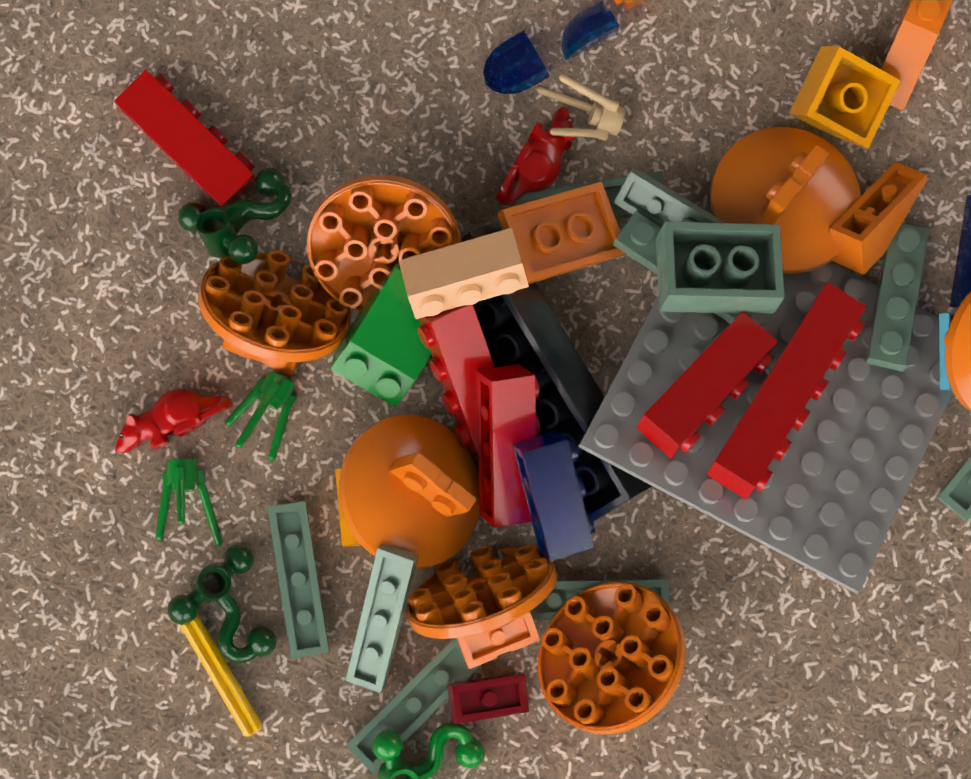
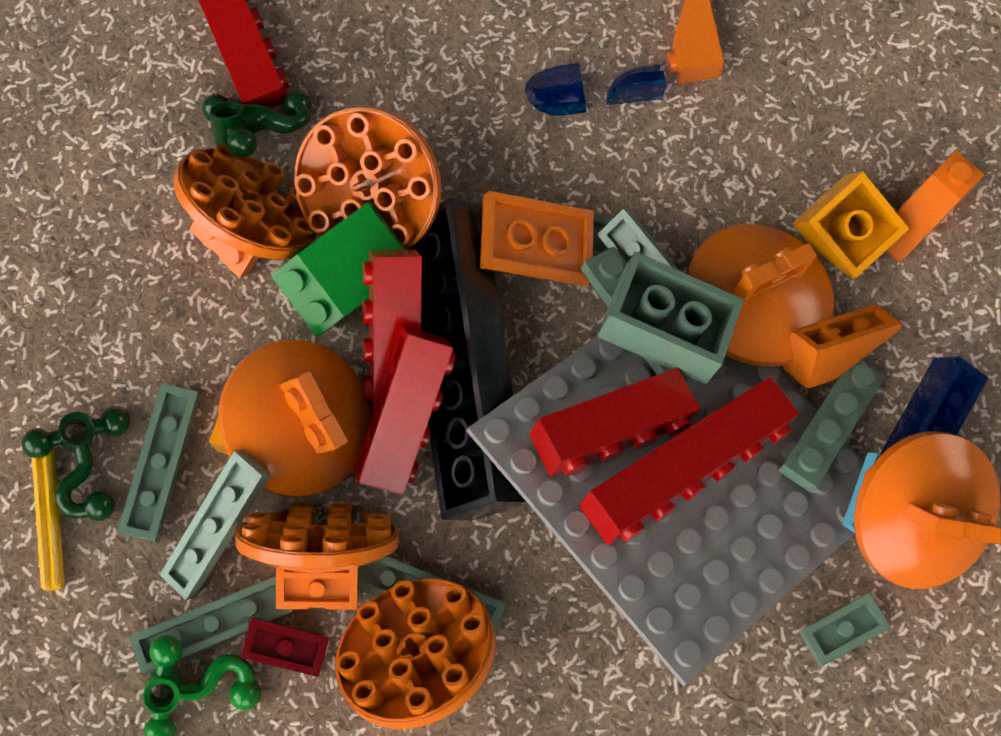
camera: 25 degrees right, 10 degrees down
(174, 412) = (115, 268): red animal -> none
(182, 476) = (96, 328): green plant -> none
(272, 392) = (215, 285): green plant -> none
(463, 273) = (424, 226): light nougat brick -> none
(537, 161) = (545, 175): red animal -> none
(554, 495) = (426, 472): clear blue brick -> none
(604, 116) = (620, 160): tan plant -> none

